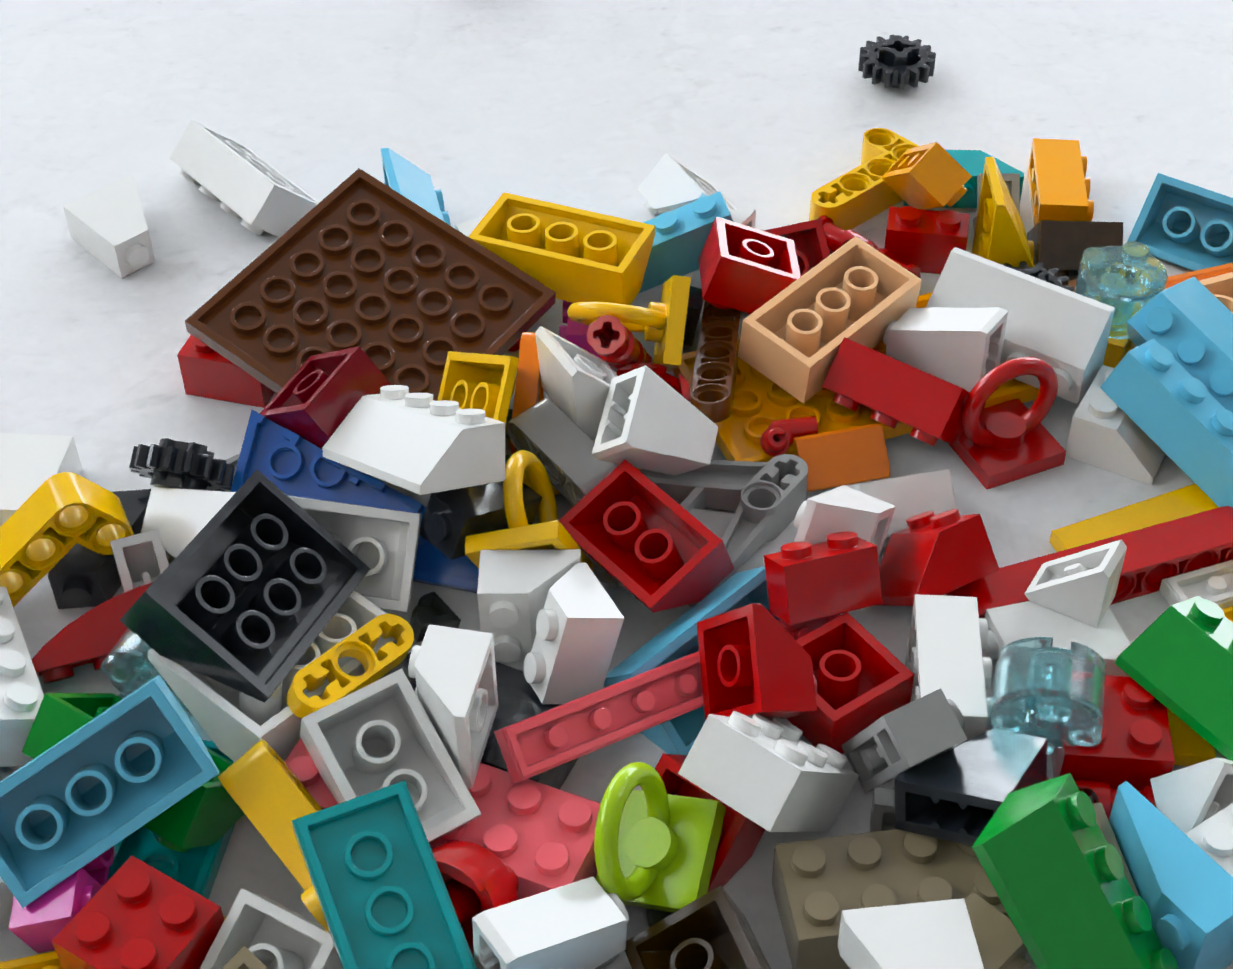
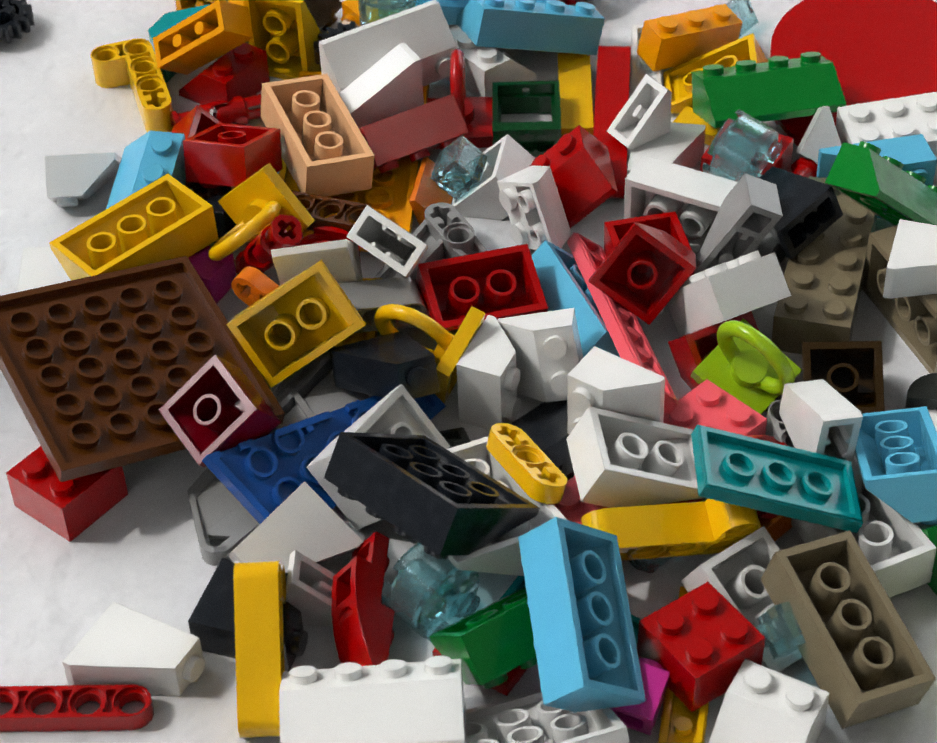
camera: 65 degrees left, 0 degrees up
(181, 466) = (228, 524): black gear -> none
(419, 442) = (338, 356): white slope -> none
(781, 434) = (400, 205): red arm -> none
(823, 578) = (578, 218): red brick -> none
(877, 456) = (459, 167): none -> clear light blue brick
(995, 477) = (541, 98): none -> dark green window

